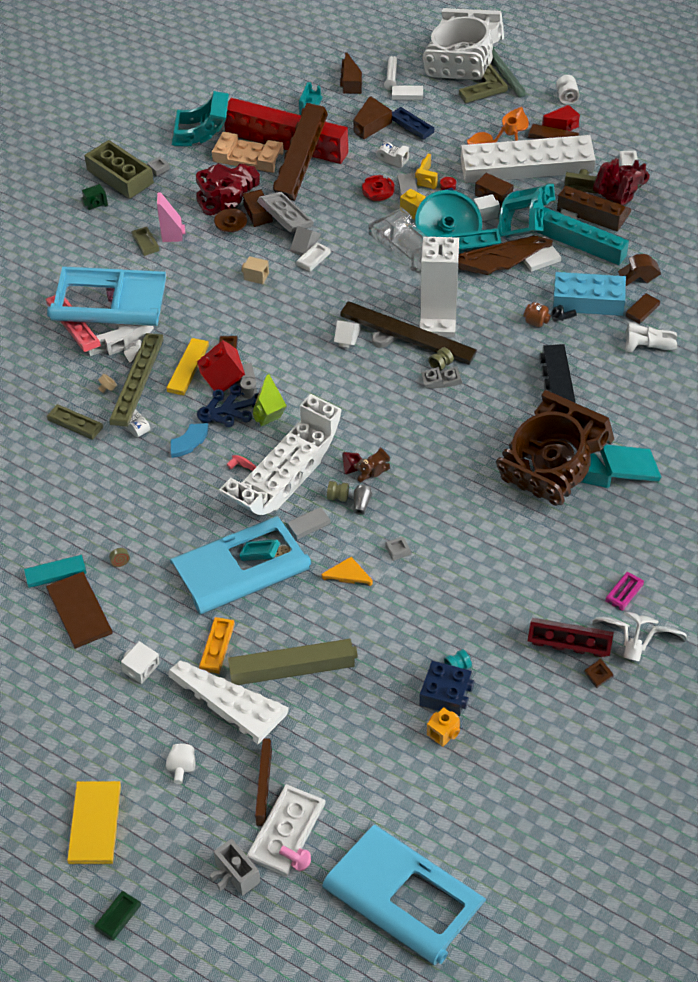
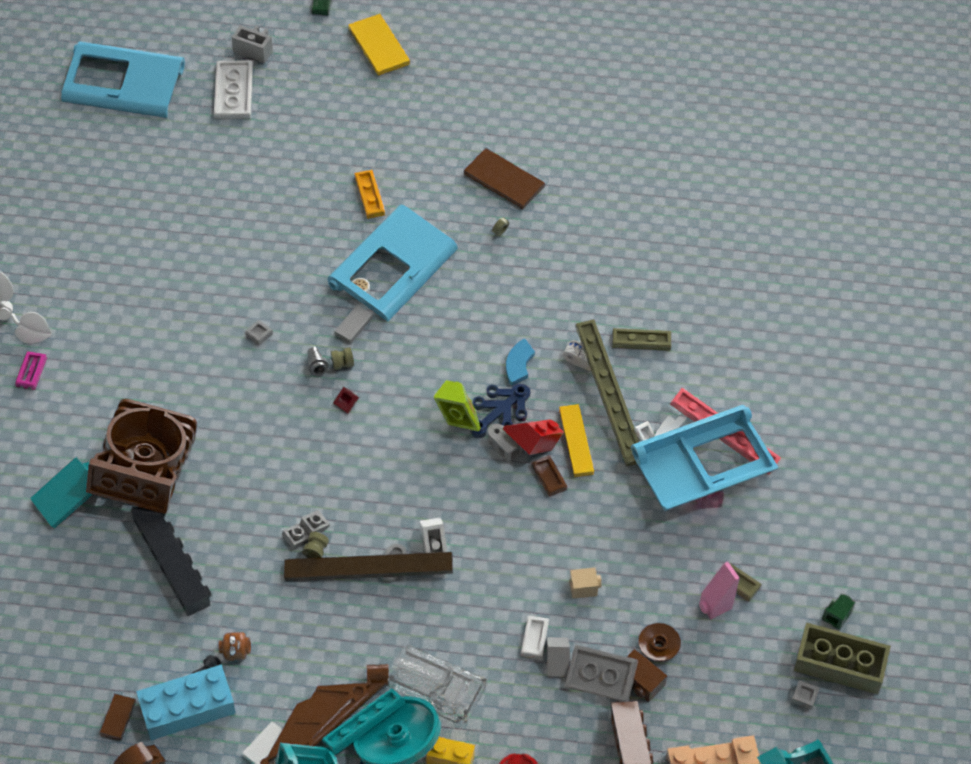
camera: 150 degrees right, 5 degrees up
(54, 571) = (548, 200): teal tile -> none
(106, 383) = (639, 384): tan tile -> none
(140, 662) = (420, 150): white head -> none
(181, 760) = (340, 101): white piece -> none
(224, 186) = (694, 675): dark red animal -> none
(231, 701) = (317, 147): white wing -> none
(237, 459) = (452, 358): coral bar -> none
(259, 550) = (379, 274): teal tile -> none
(263, 782) = (267, 107): reddish brown tile -> none
(289, 461) = (407, 341): white slope -> none
(292, 662) = (295, 197): olive brick -> none
(300, 860) = (210, 70): bright pink plate -> none
(348, 572) = (292, 293): light orange tile -> none
(373, 465) = (320, 391): reddish brown animal -> none
(439, 285) = (353, 605): white brick -> none
(443, 726) = (143, 190): light orange brick -> none
(446, 688) = (154, 219): dark blue brick -> none
(459, 660) = (155, 247): teal wheel -> none
(570, 636) = (64, 298): dark red brick -> none
(598, 673) = (29, 285): reddish brown tile -> none
(650, 337) = (88, 670): white piece -> none

